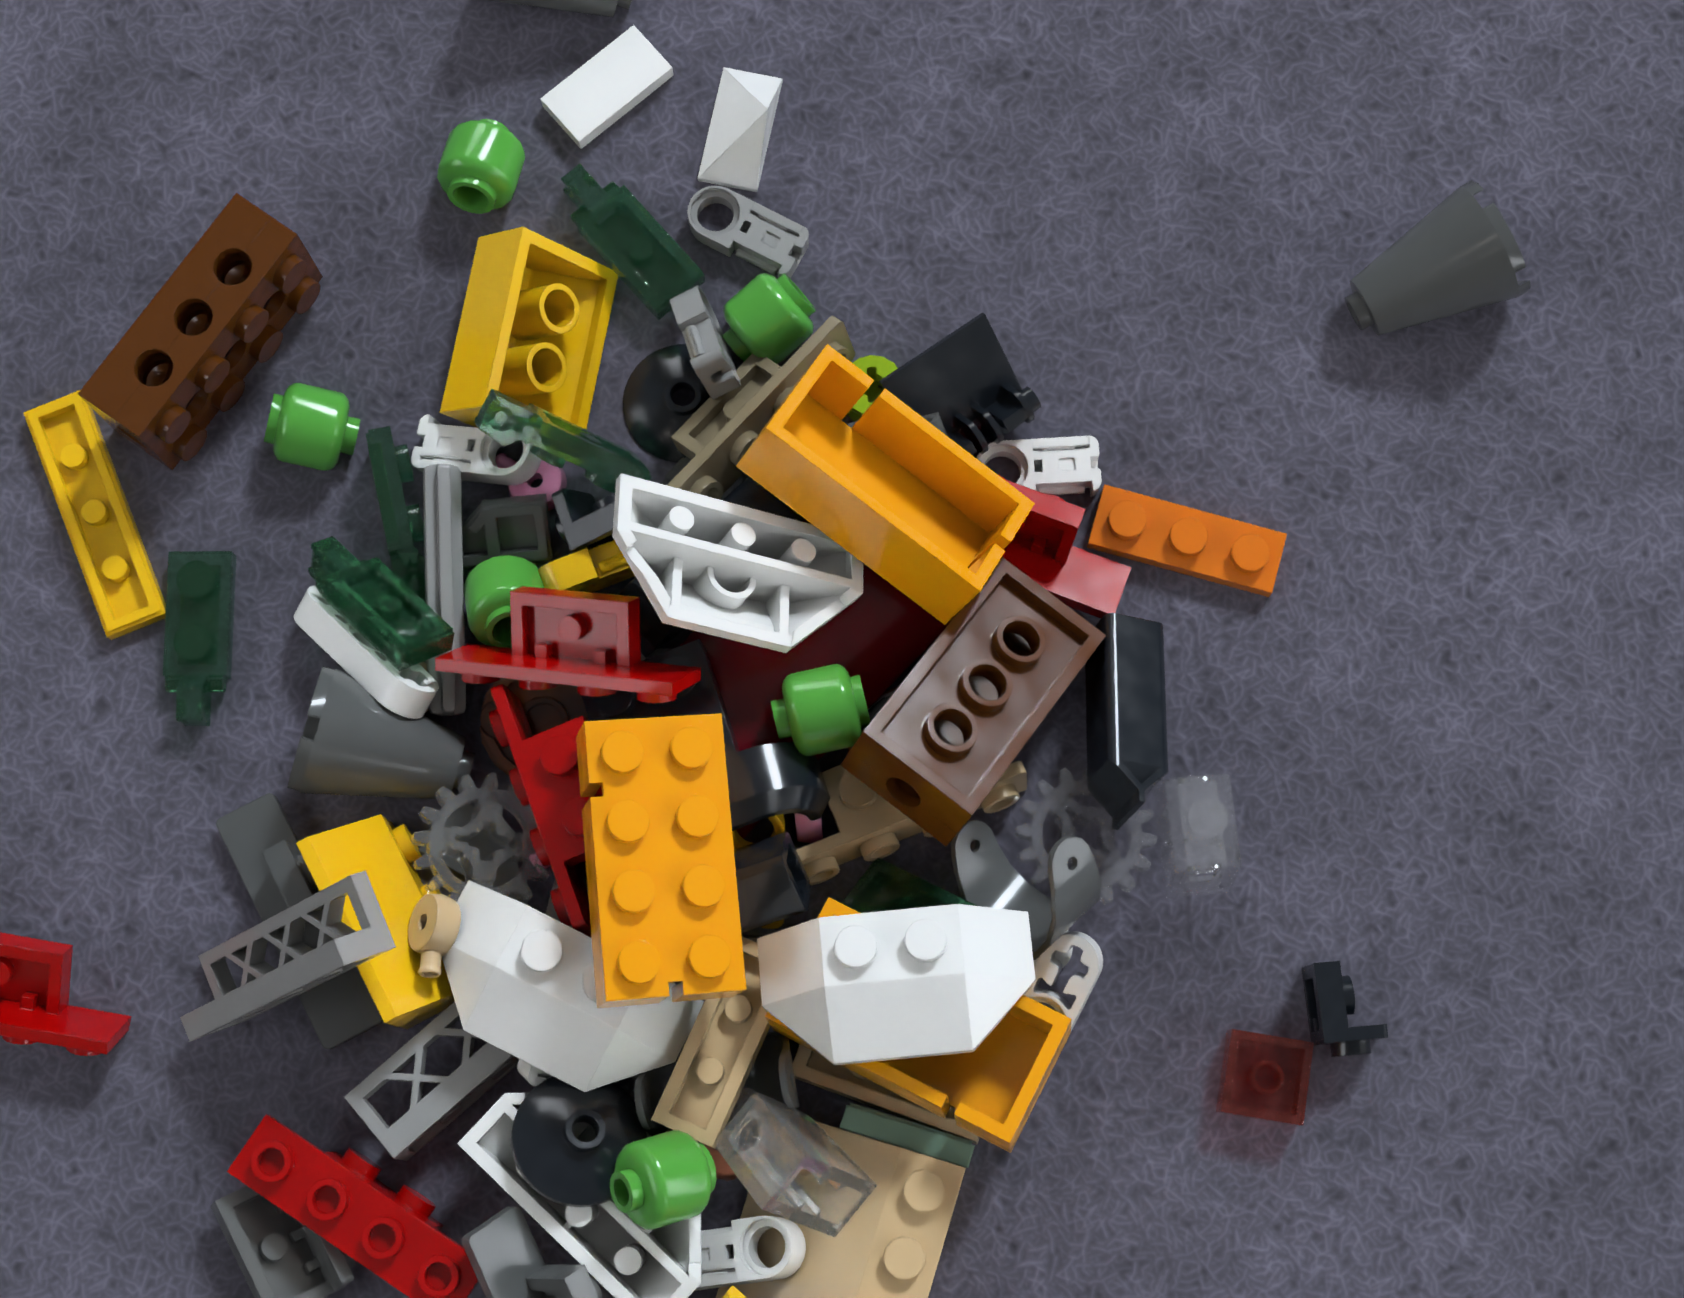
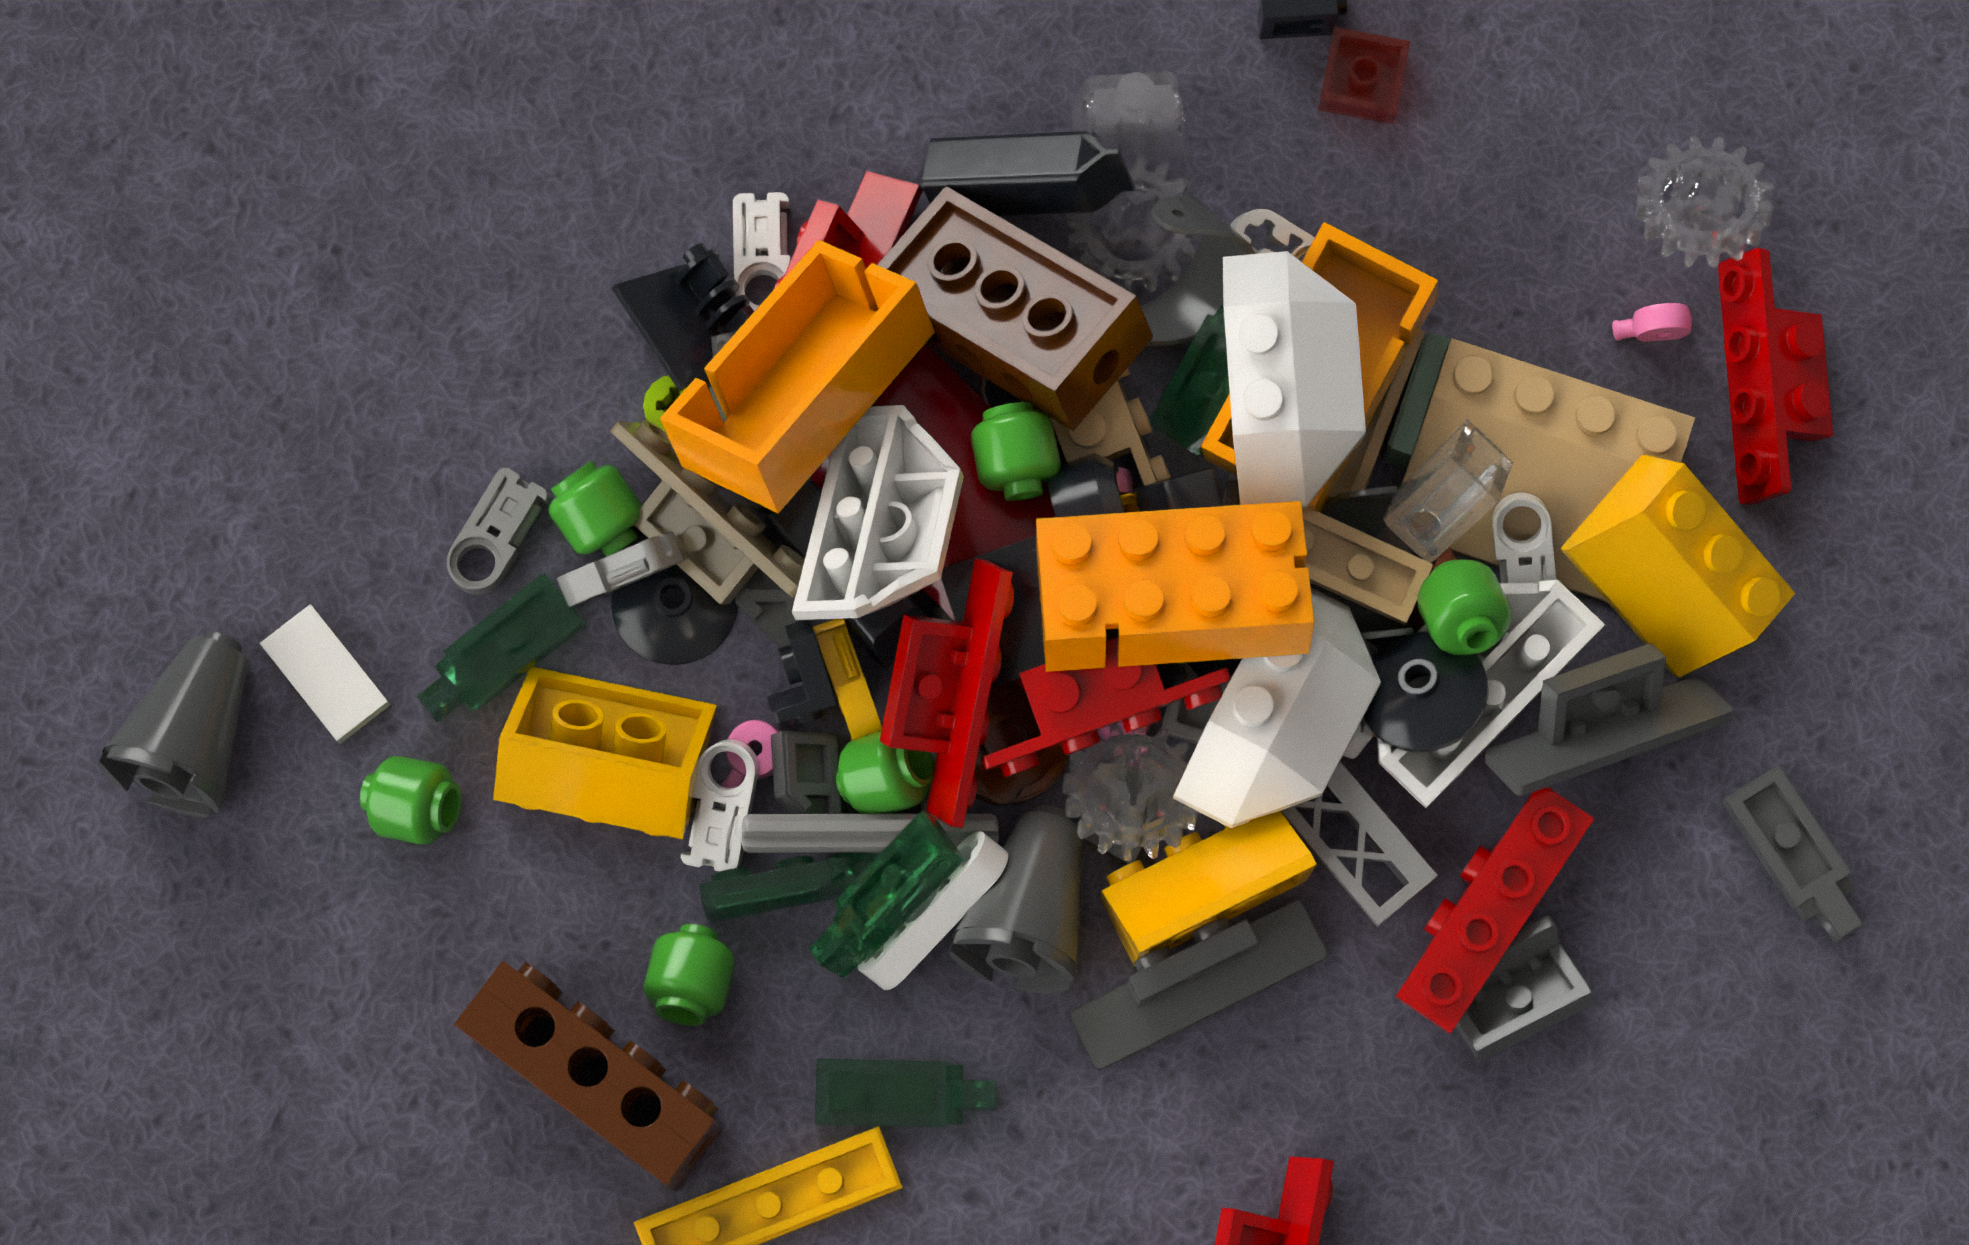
camera: 90 degrees left, 0 degrees up
(299, 965) = (1272, 966): light grey fence -> none
(433, 931) = (1223, 825): tan piece -> none
(557, 440) = (725, 704): clear green hinge -> none
(740, 129) = (380, 536): white slope -> none
(1187, 540) = (840, 116): orange plate -> none

